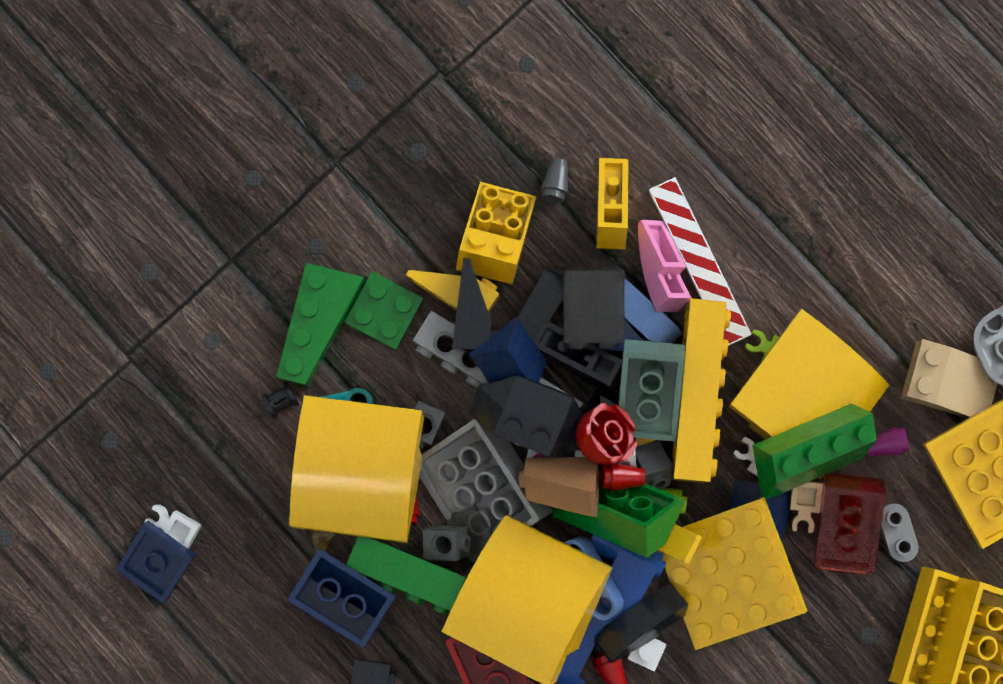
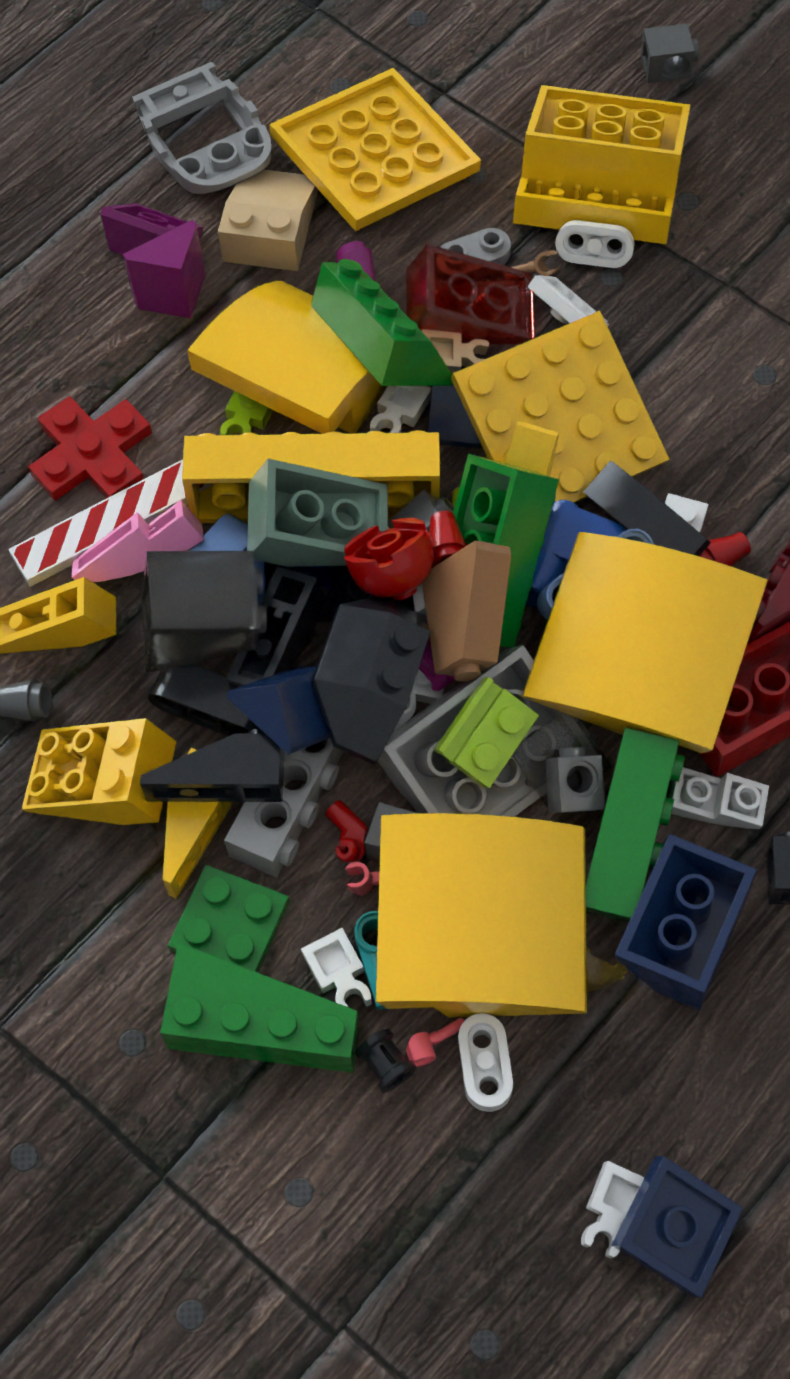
camera: 95 degrees left, 20 degrees down
(272, 461) = (485, 1063): none -> white plate
(287, 422) = (421, 1044): none -> coral hand
(345, 374) = (336, 966): none -> white plate
(403, 403) = (369, 880): none -> coral hand
(428, 640) = (722, 801): none -> white slope
(434, 395) = (352, 834): none -> red arm
(482, 487) = (486, 732): none -> lime plate
(754, 236) = (89, 448): none -> red plate
(837, 596) = (564, 302): none -> white plate
(878, 581) = (539, 264): none -> medium nougat hand
(892, 302) = (167, 272): none -> magenta slope
(892, 625) = (595, 245): none -> white plate
(943, 291) = (135, 224): none -> magenta slope

